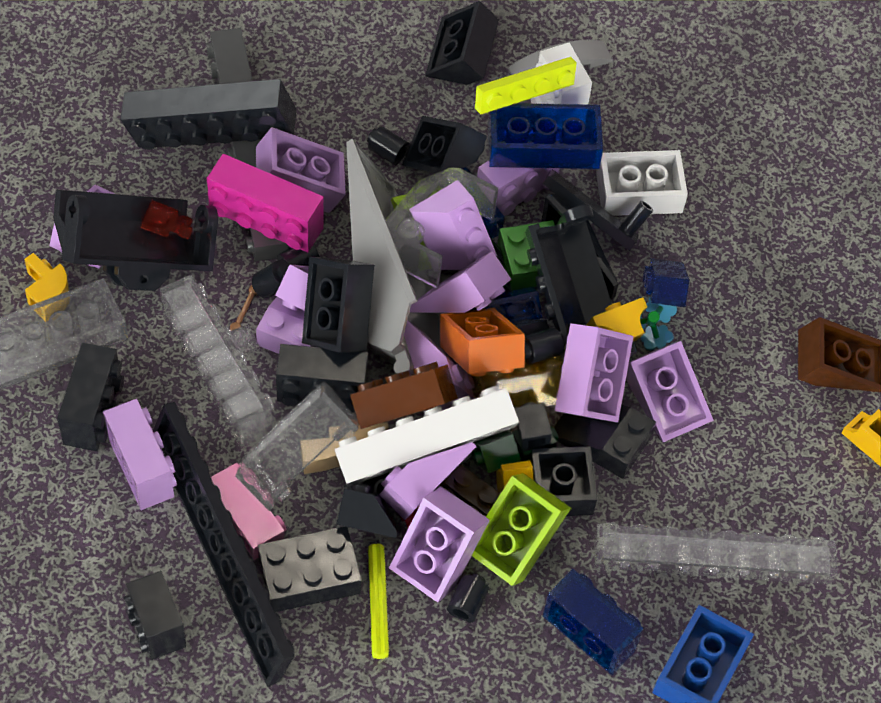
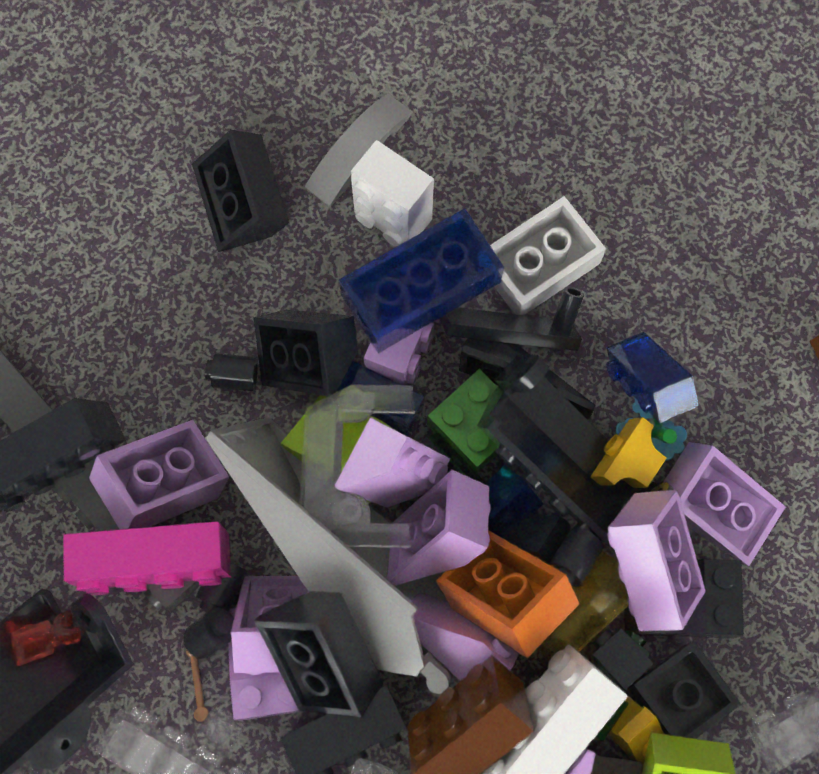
camera: 25 degrees left, 15 degrees up
(525, 85) = (363, 244): neon yellow plate -> none

